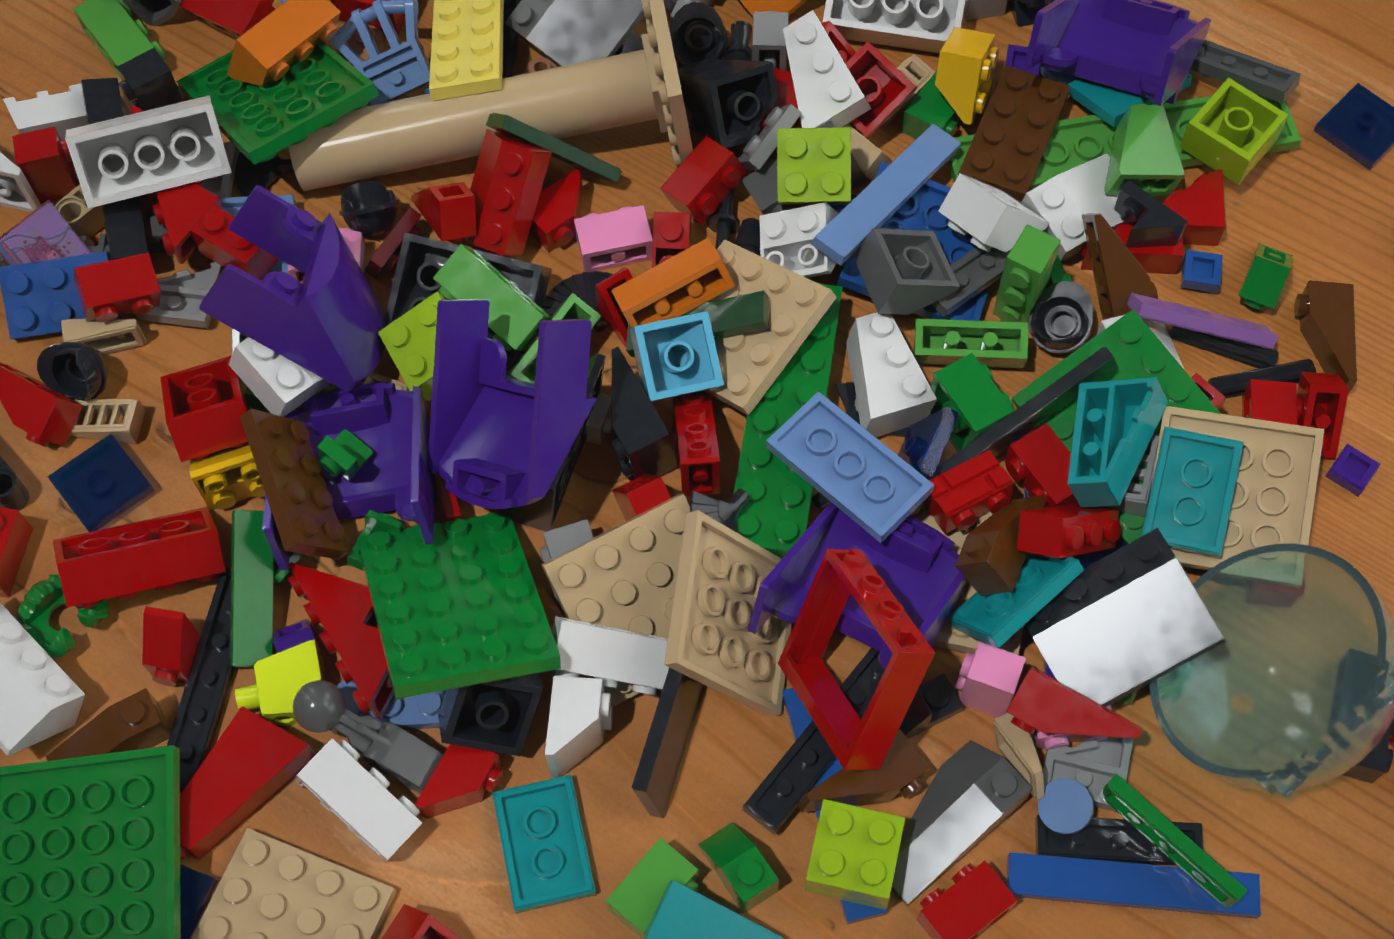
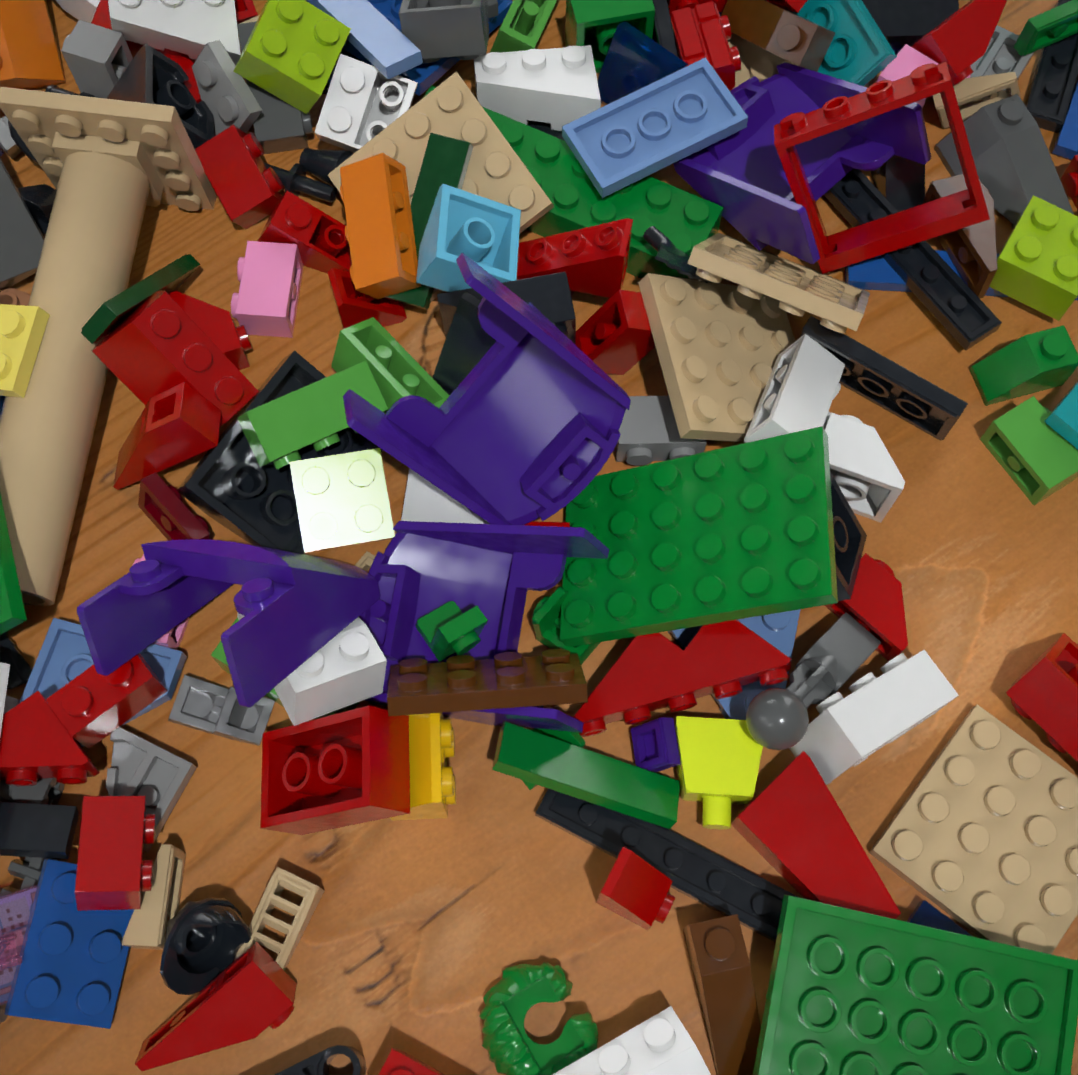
camera: 75 degrees left, 5 degrees up
(101, 483) = (371, 943): clear blue plate -> none
(138, 557) = (499, 908): red slope -> none
(369, 208) = (114, 530): black piece -> none
(543, 844) = (956, 545): teal tile -> none
(583, 287) = (316, 340): black hand -> none
(1066, 806) = (1036, 80): medium blue piece -> none

